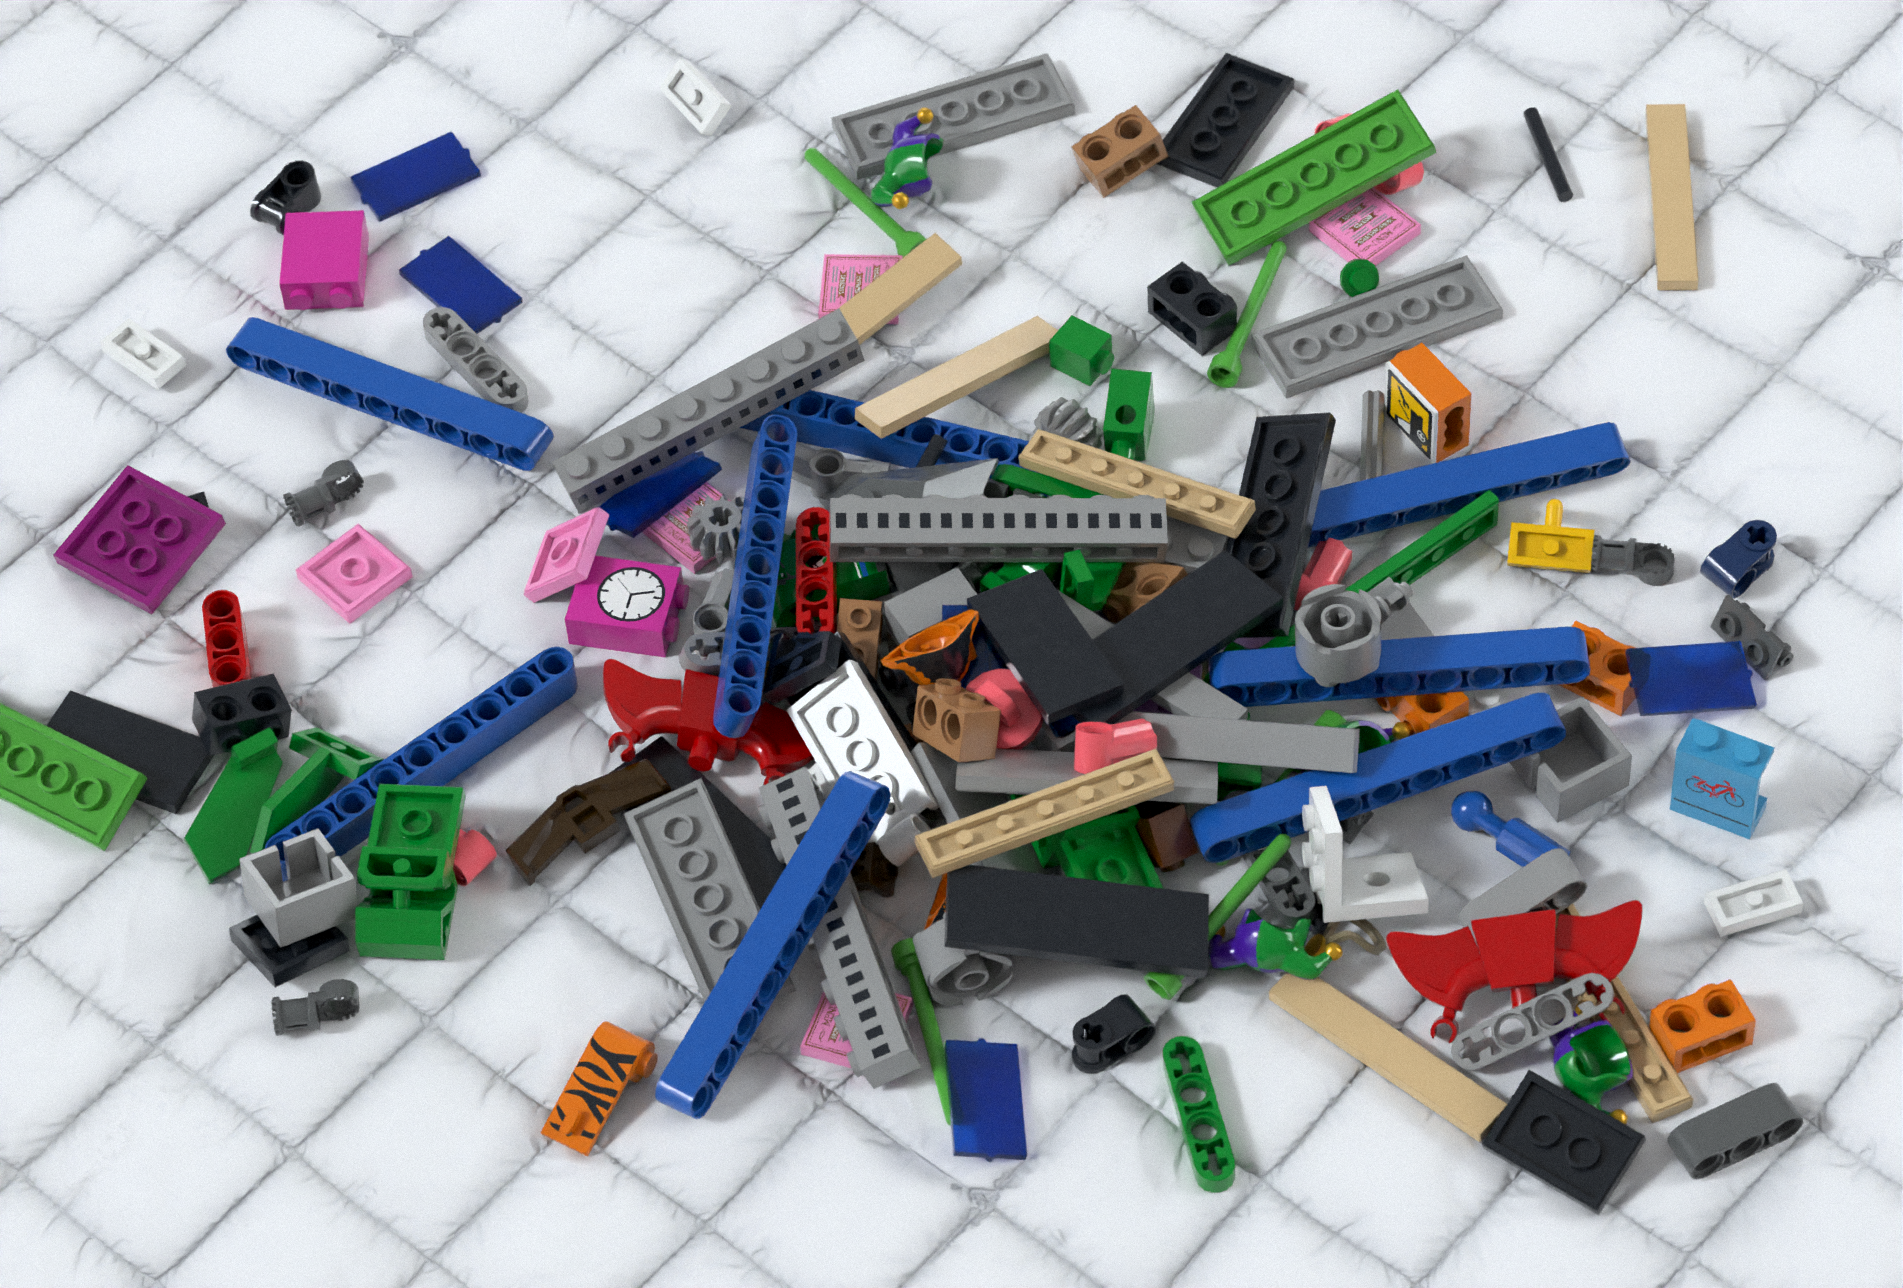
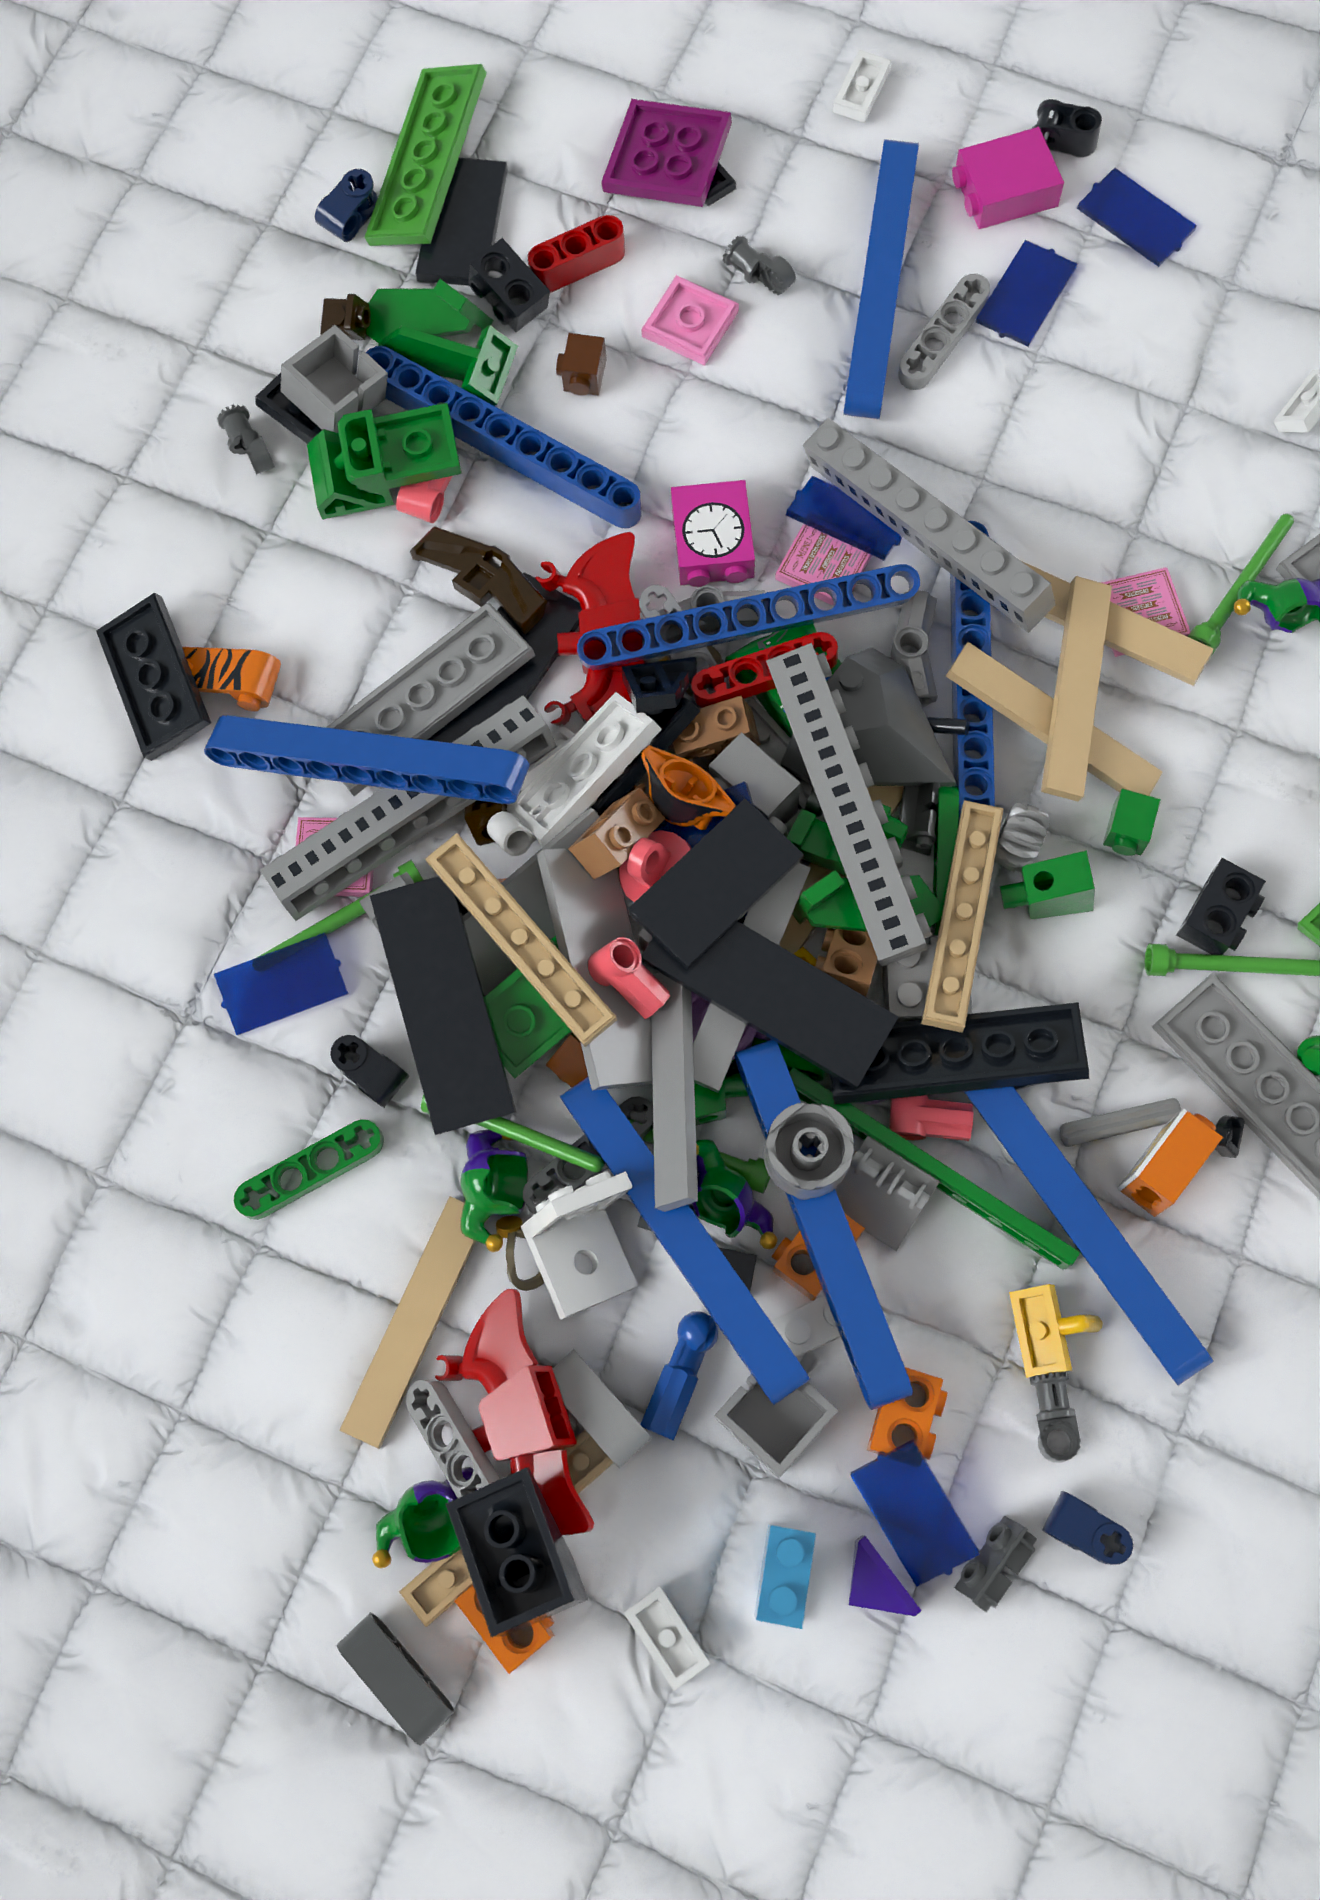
camera: 75 degrees right, 20 degrees up
(53, 848) = (347, 210): none -> dark blue piece
(203, 879) = (348, 314): none -> dark brown bracket
(370, 673) = (582, 364): none -> reddish brown brick
(566, 554) = (745, 467): bright pink tile -> none
(575, 1151) = (153, 677): none -> black tile
(716, 528) = (809, 569): light grey gear -> none
(938, 345) = (1076, 689): none -> tan tile
(1564, 1142) = (345, 1513): black tile -> none
(1648, 963) = (515, 1554): none -> black slope
(1751, 718) = (875, 1584): none -> dark purple slope

